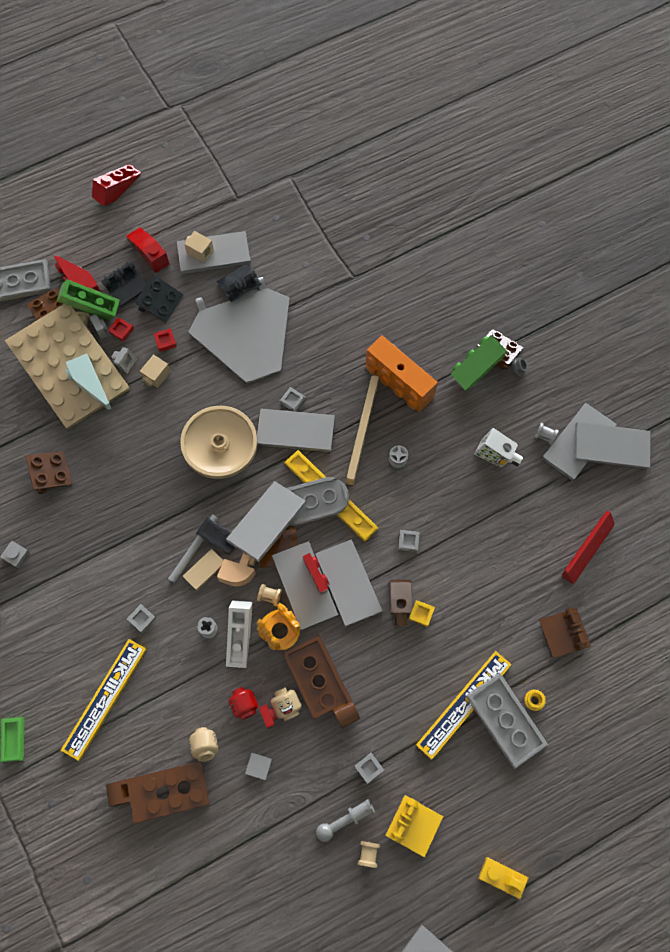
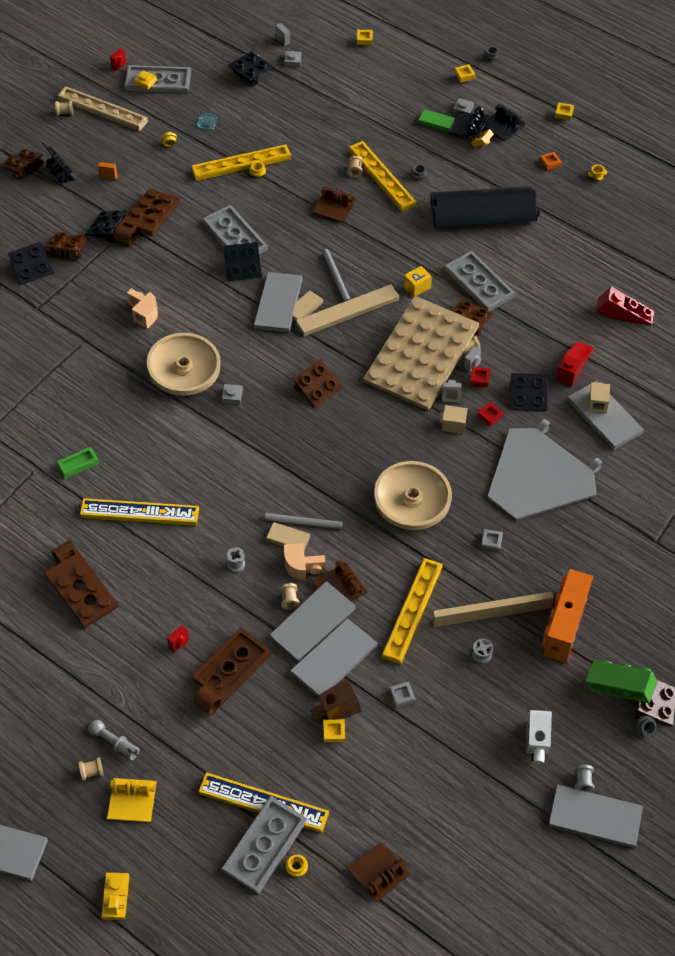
camera: 65 degrees right, 15 degrees down
(75, 273) = (506, 329): red slope -> none
(85, 377) = (415, 366): light aqua slope -> none
(88, 300) = (488, 336): bright green brick -> none
(124, 283) = (528, 359): black hinge -> none
(141, 618) = (220, 507): light grey plate -> none
(203, 744) = (132, 599): tan head -> none
(215, 535) = (324, 533): black plate -> none
(238, 633) = (243, 585): white slope -> none
(239, 282) = (583, 445): black hinge -> none
(243, 703) = (180, 614): red head -> none
(258, 766) = (132, 651): light grey tile -> none
(266, 521) = (355, 561): light grey tile -> none
(283, 616) = (254, 604): light orange piece -> none
(285, 704) = (195, 648): tan head -> none
(295, 430) = (462, 555): light grey tile -> none
(320, 580) = (327, 617): red plate -> none
(323, 499) = (396, 594): light grey tile -> none
(369, 768) = (167, 740): light grey plate -> none
(589, 547) = (481, 863): red slope -> none
(612, 445) = (607, 848): light grey tile -> none

